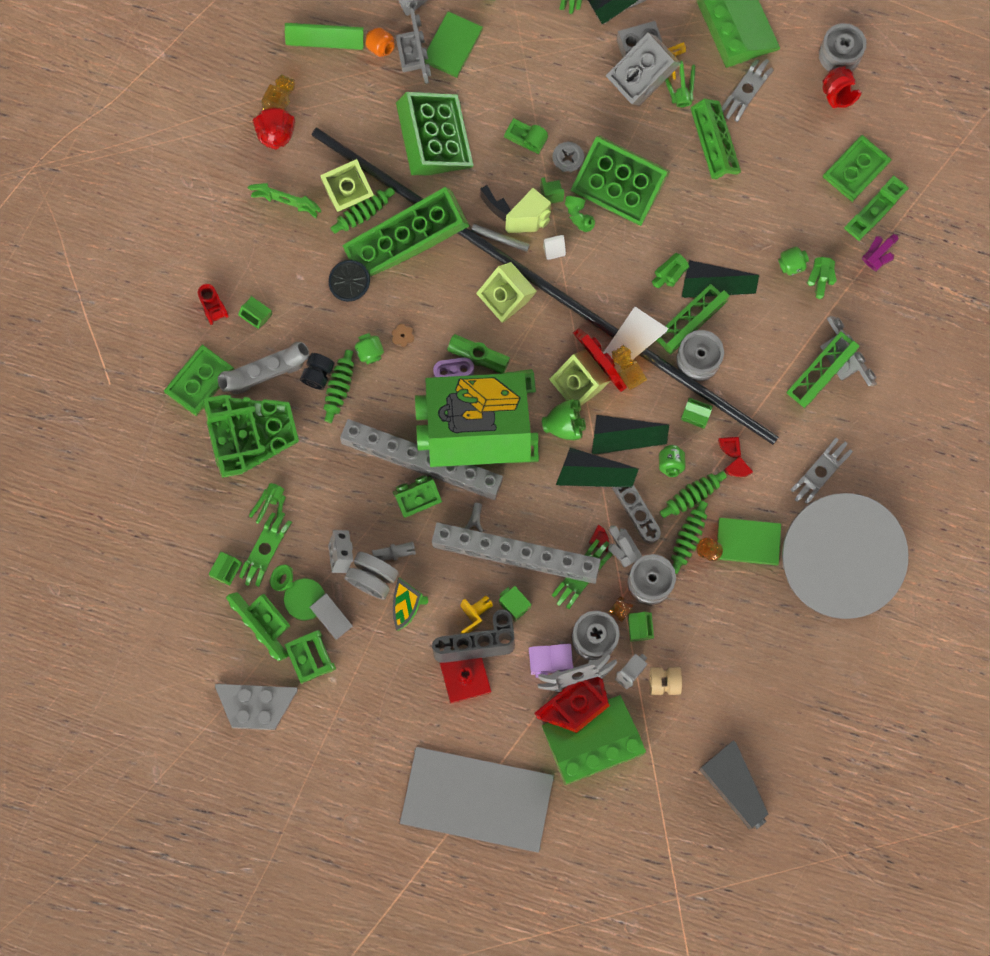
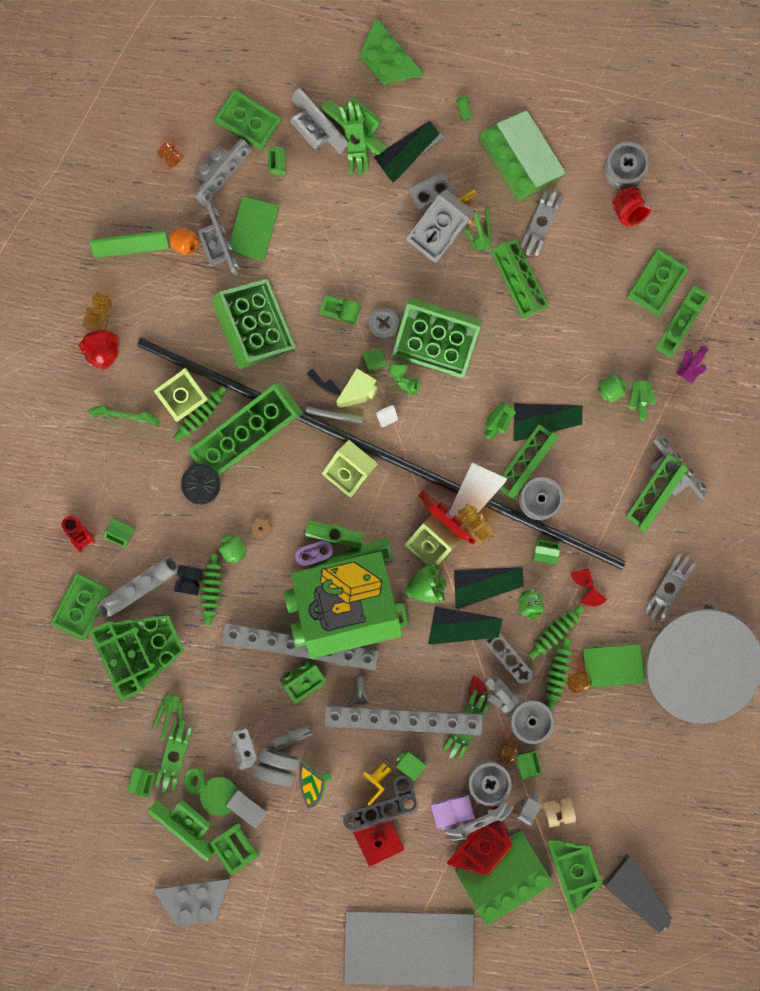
camera: 10 degrees left, 10 degrees up
(671, 747) = (575, 871): none -> bright green wing

